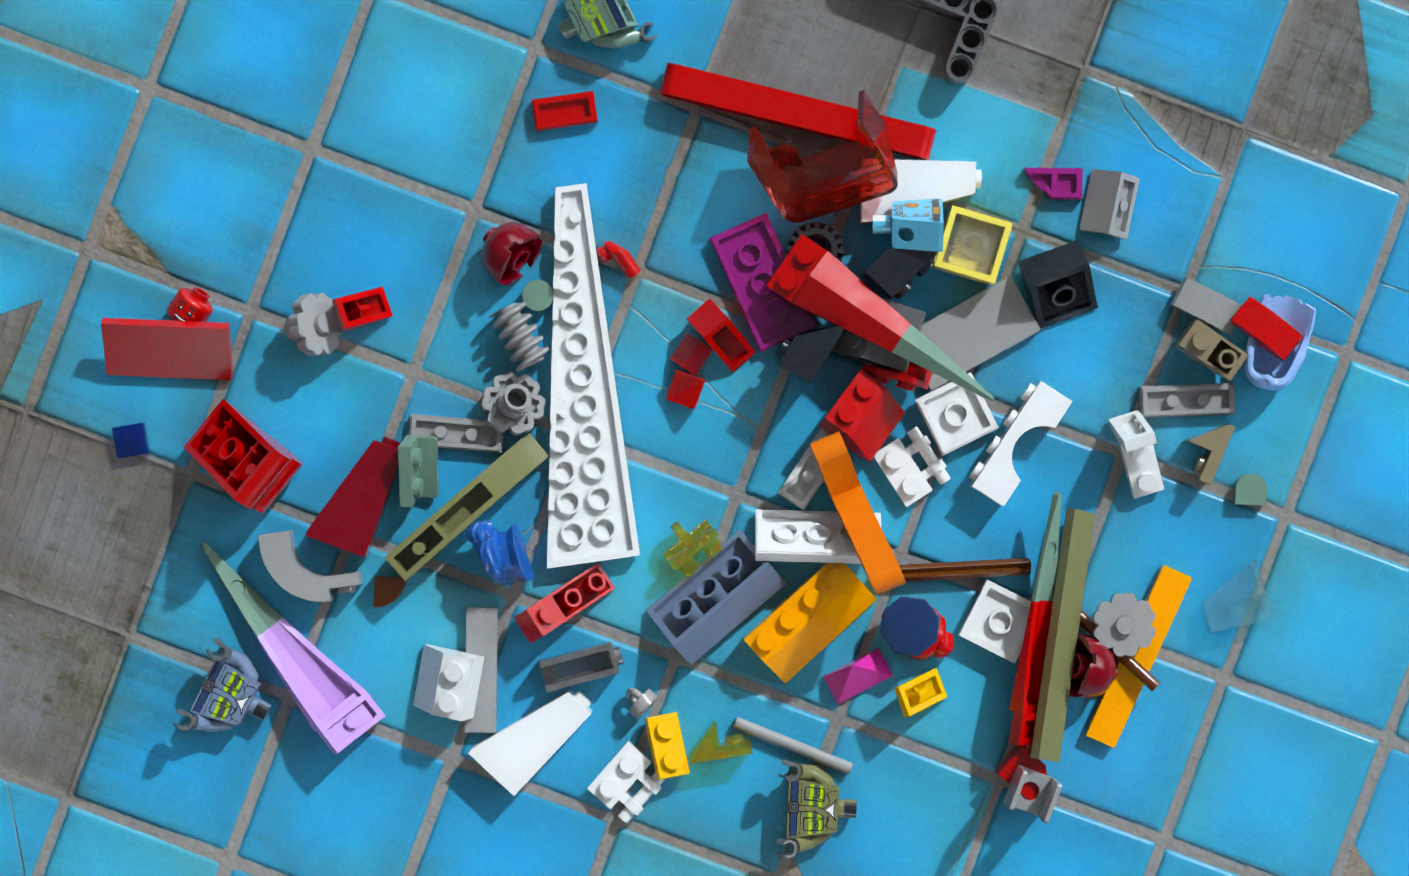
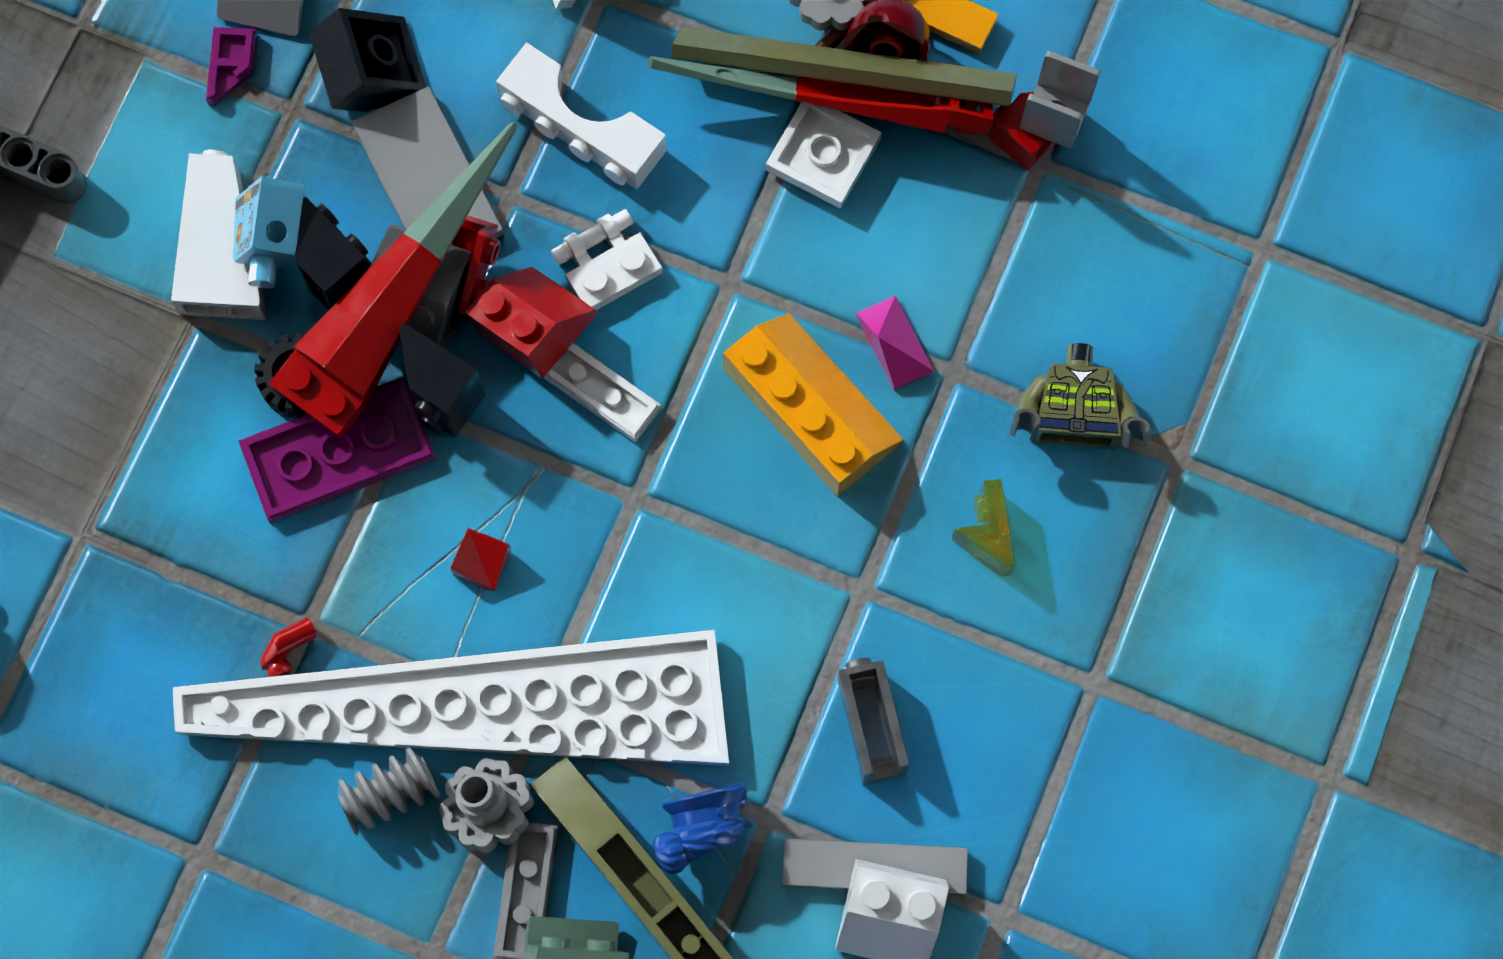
camera: 90 degrees left, 15 degrees down
(508, 250) = (260, 801): dark red cylinder -> none
(528, 743) = (980, 794): white slope -> none
(538, 295) = (331, 763): sand green tile -> none
(564, 111) = (67, 718): red tile -> none
(564, 603) = (781, 743): red slope -> none
(619, 776) = (1030, 671): white plate -> none
(640, 701) = (929, 633): light grey tile -> none
(667, 746) = (989, 602): yellow plate -> none
(690, 543) = (701, 560): clear yellow hips -> none
(691, 354) = (430, 552): red slope -> none
(715, 598) = (777, 527): sand blue slope -> none
(721, 335) = (405, 506): red slope -> none
(787, 109) = (97, 397): red beam -> none
(792, 745) = (990, 432): light grey bar -> none
(803, 537) = (697, 380): white tile -> none
(830, 178) = (192, 338): clear red windscreen -> none
(857, 514) = (670, 319): orange beam -> none
(915, 629) = (830, 256): dark blue piece -> none
(920, 692) = (921, 257): yellow slope -> none
(955, 416) = (537, 198): white plate -> none
(966, 569) = (751, 211): reddish brown axle -> none
(972, 245) = (308, 153): piece -> none

